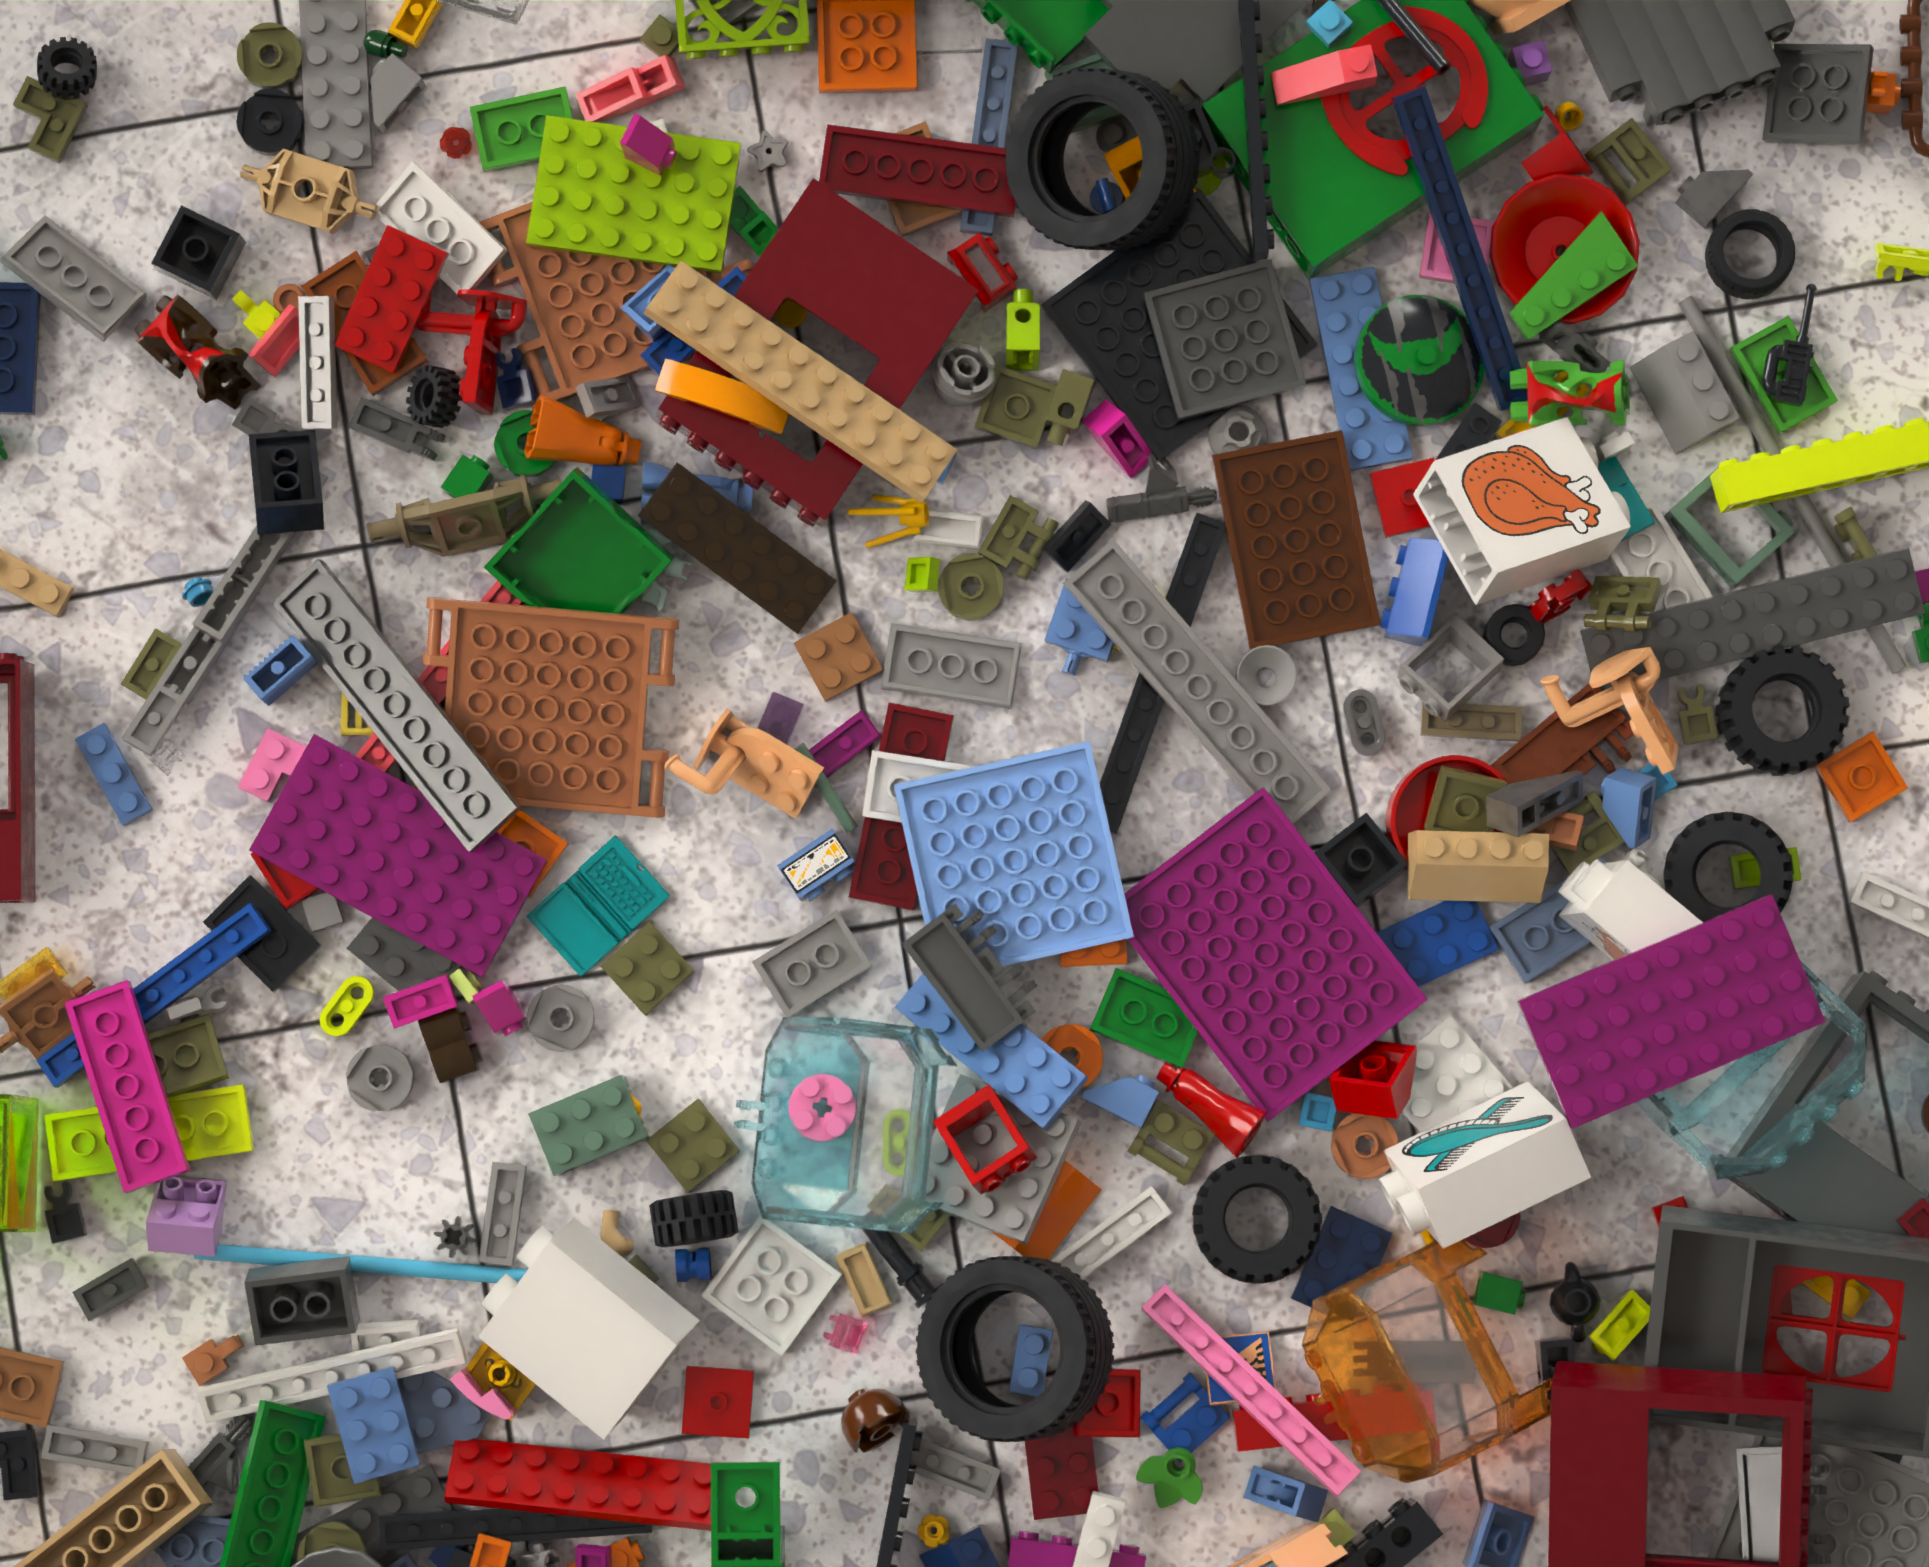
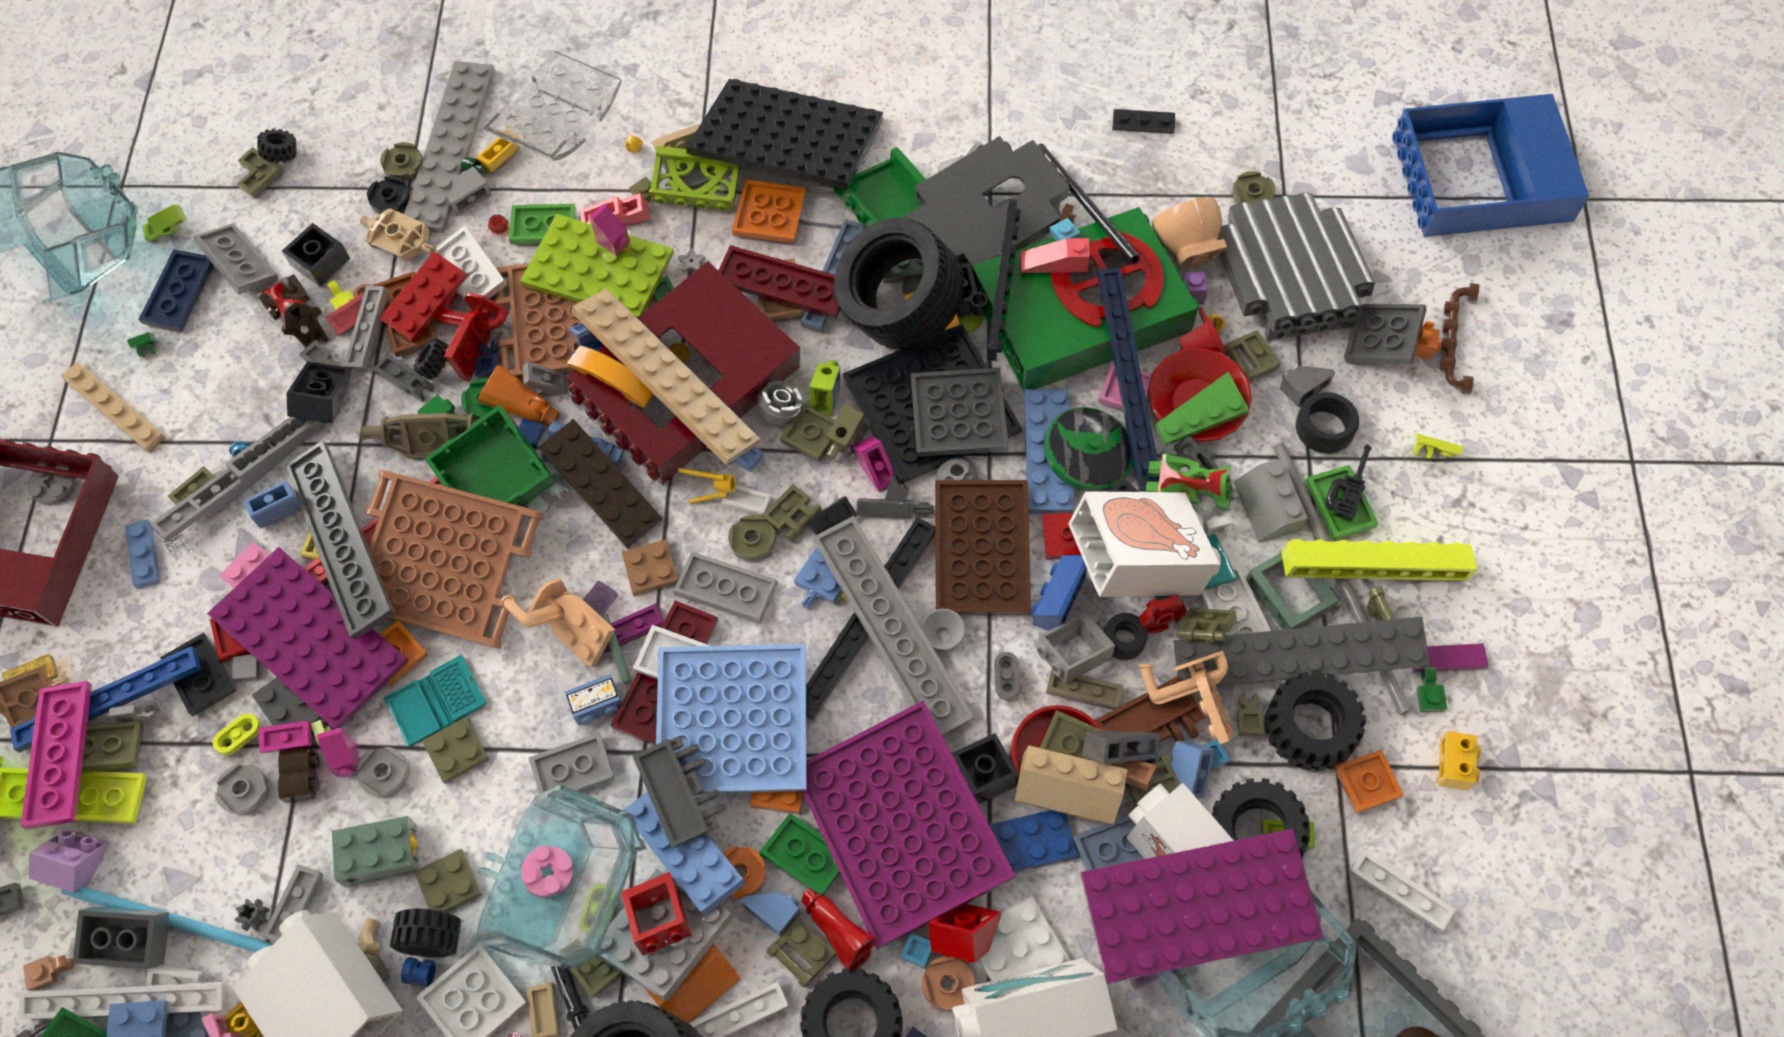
camera: 10 degrees right, 20 degrees down
(922, 574) = (720, 523): lime plate -> none
(982, 269) = (811, 348): red window -> none

